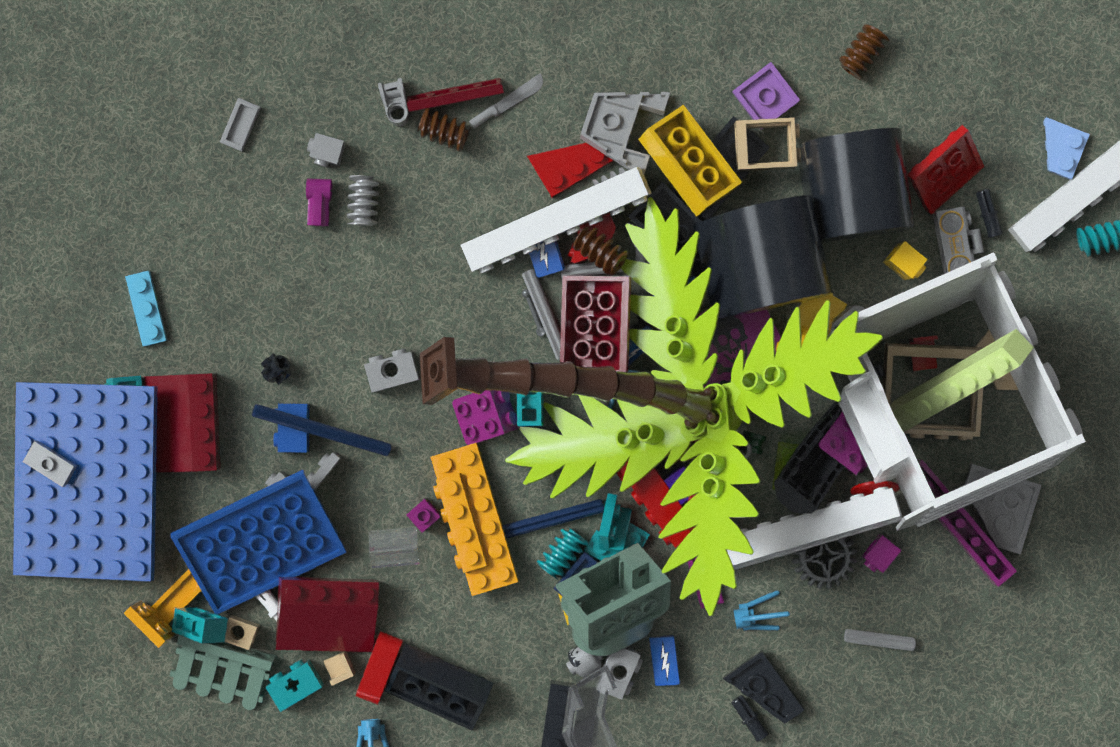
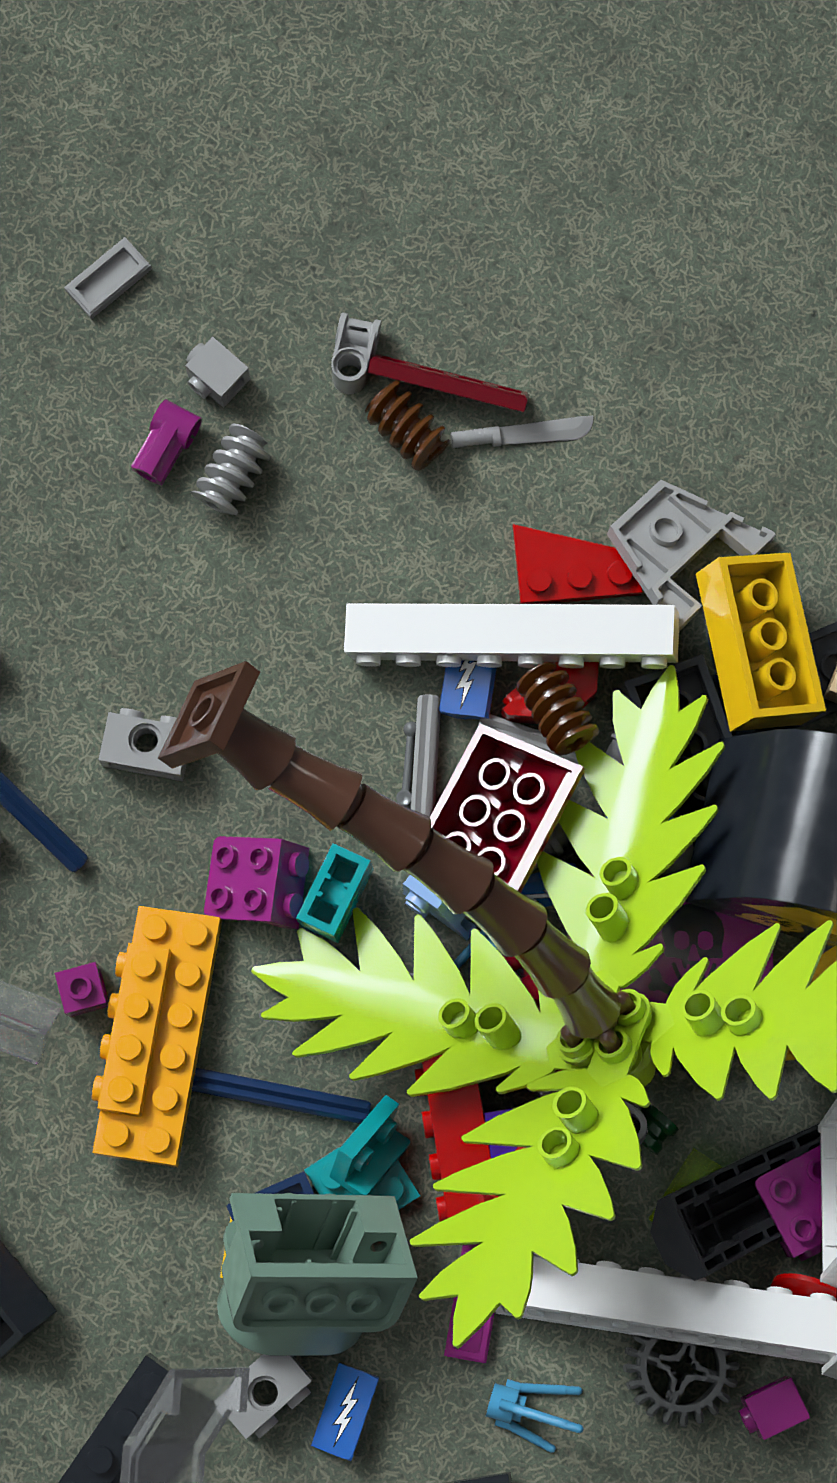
camera: 25 degrees right, 10 degrees down
(562, 552) = (268, 1155): teal piece -> none
(582, 662) = (213, 1346): light grey head -> none

